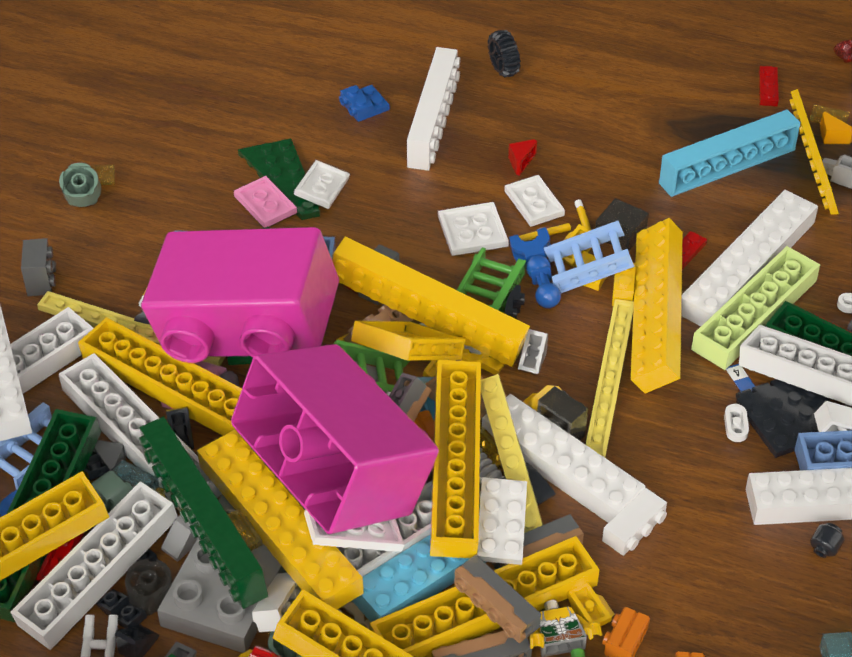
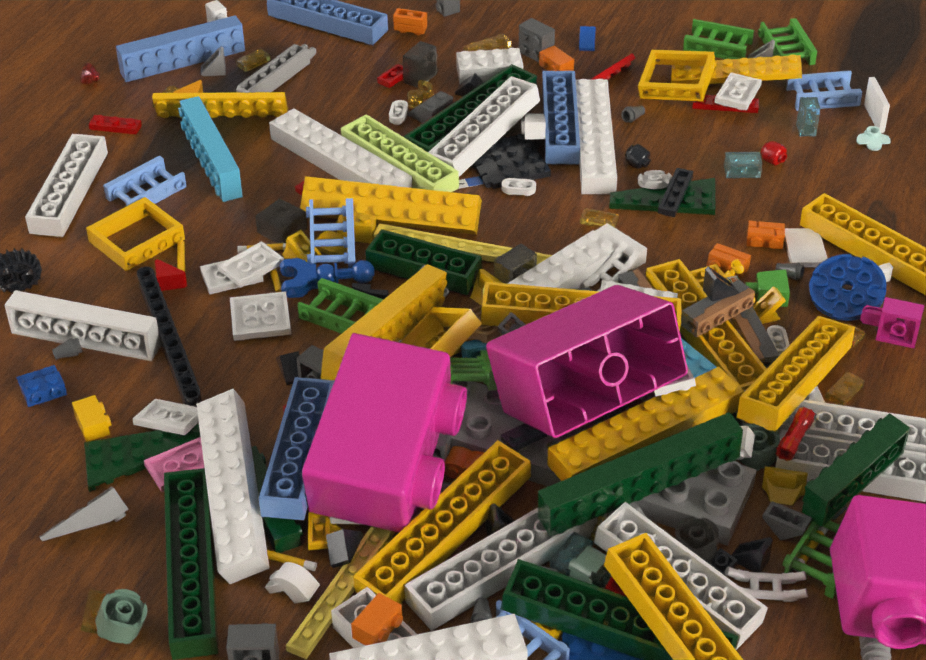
camera: 85 degrees left, 5 degrees down
(43, 331) = (377, 620): none -> orange brick
(113, 286) = (295, 581): none -> white brick
(142, 218) = (189, 566): none -> dark green brick
(202, 157) = (98, 511): none -> light grey wedge
(280, 210) = (232, 487): none -> white brick
(319, 136) = (91, 418): none -> yellow brick
(408, 255) = (288, 366): none -> black slope
(409, 108) = (68, 349): none -> dark grey cone
(427, 170) = (169, 337): none -> black beam
(513, 584) = (717, 286): none -> black slope
(544, 208) = (250, 264): none -> white tile
(554, 164) = (181, 255): none -> yellow bar
(569, 340) = (406, 256): none -> dark green brick
(580, 504) = (613, 260): none -> white piece
(596, 107) = (121, 219): none -> yellow window
(648, 65) = (66, 185): none -> white brick
(663, 107) = (145, 173): none -> light blue fence
(689, 503) = (598, 218): none -> clear yellow plate
(747, 573) = (675, 192): none -> black plate
(756, 589) = (697, 200): none -> dark green wing
(783, 560) = (654, 179): none -> white tile

